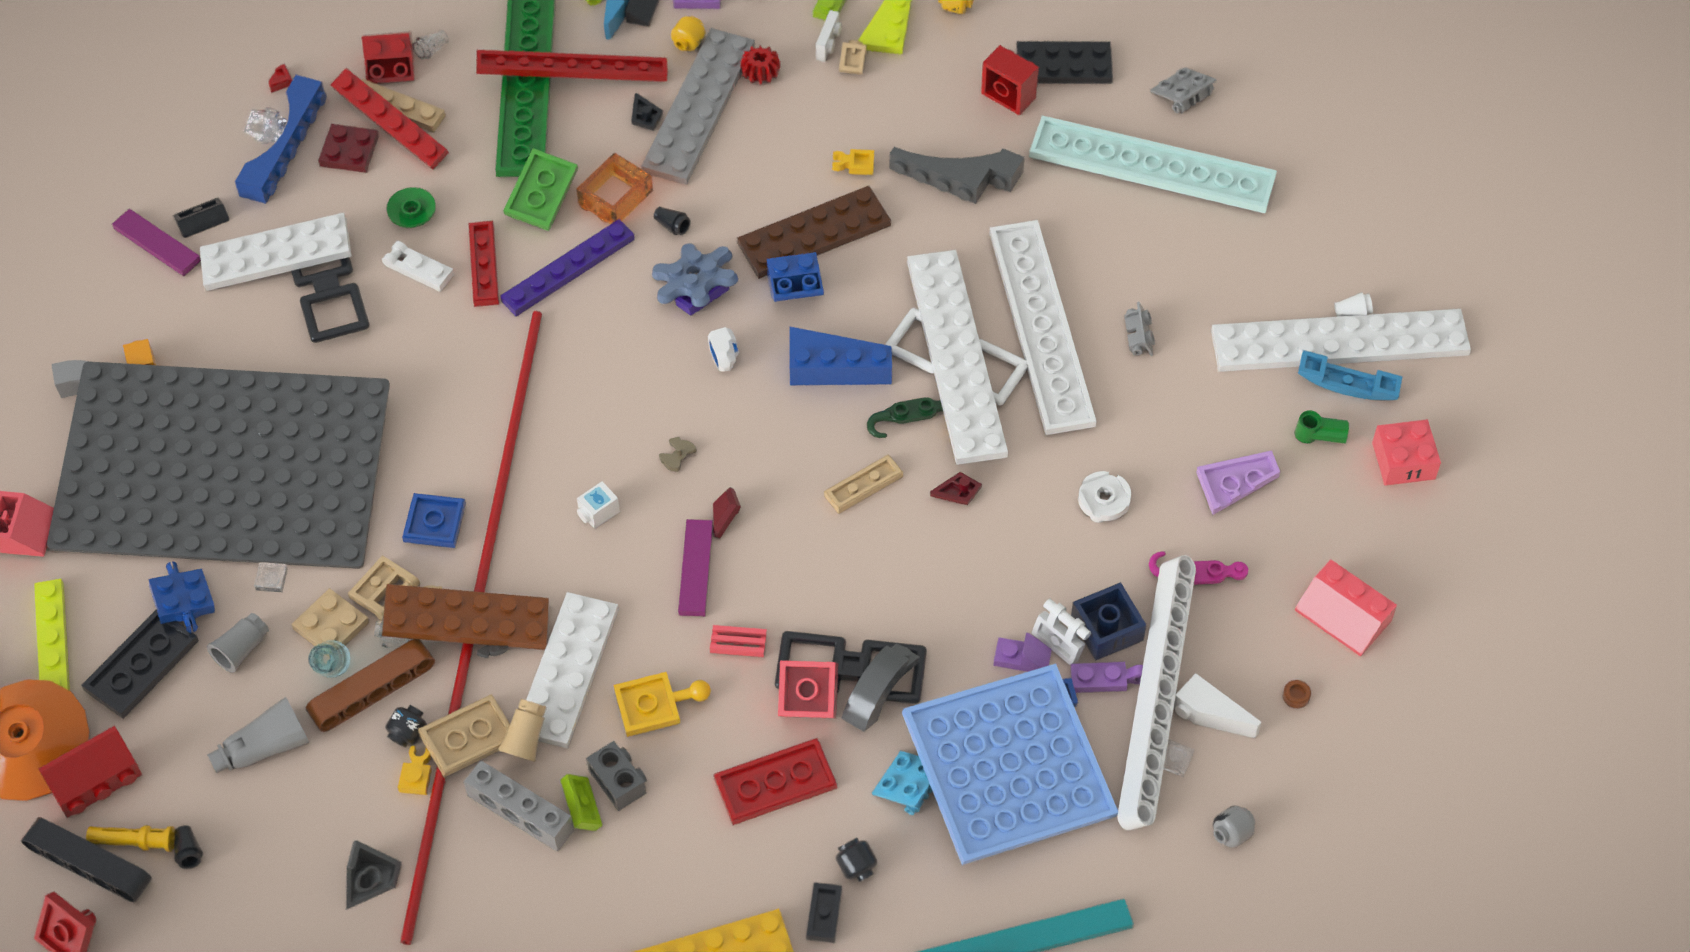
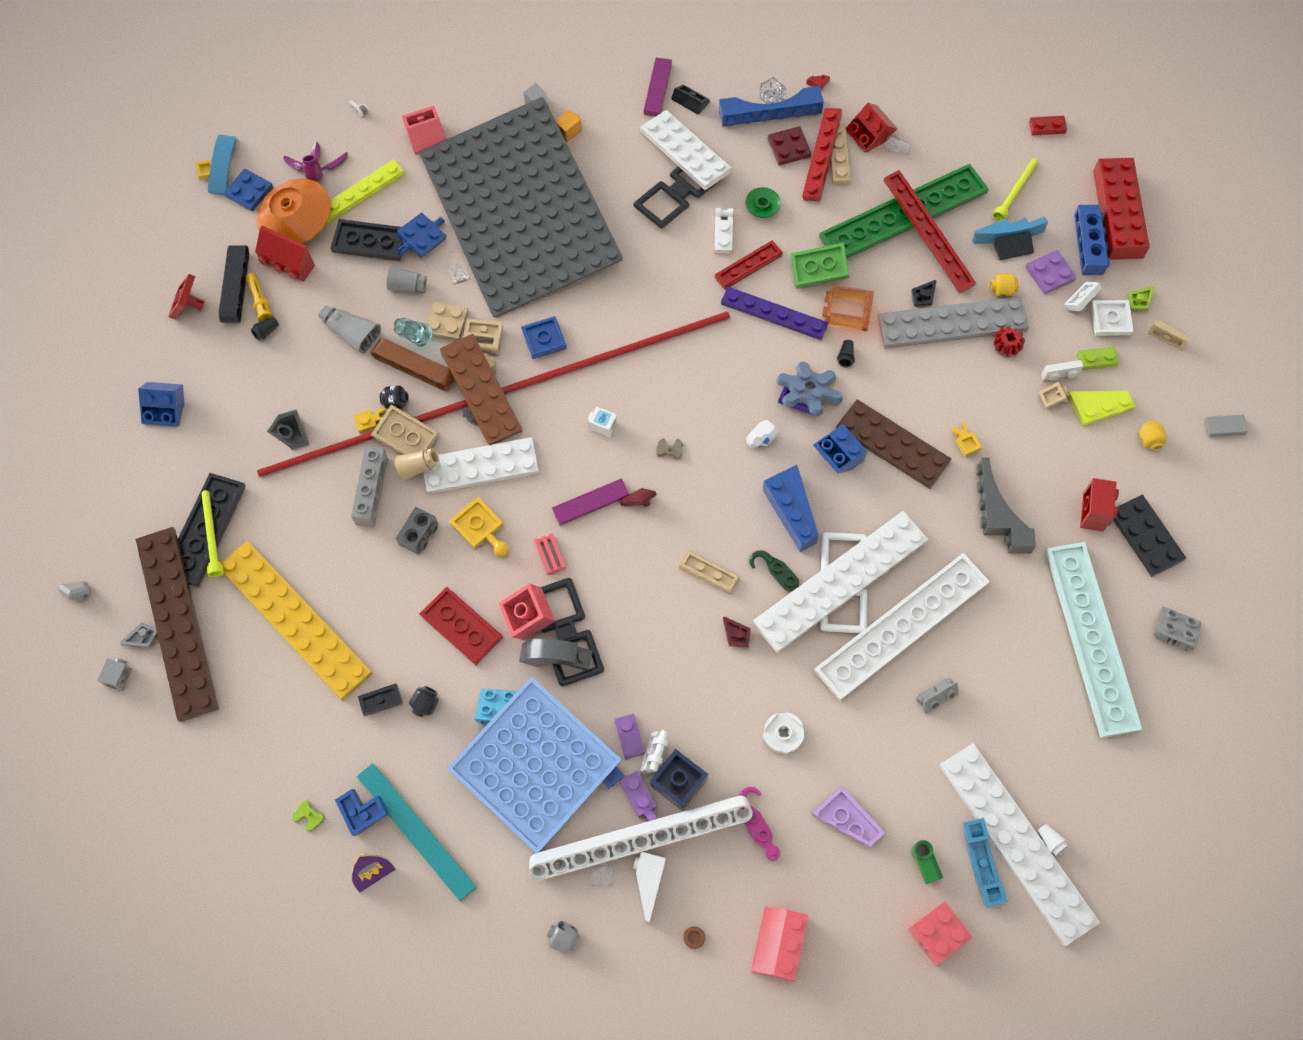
camera: 65 degrees right, 10 degrees up
(581, 802) = (389, 520): lime plate -> none

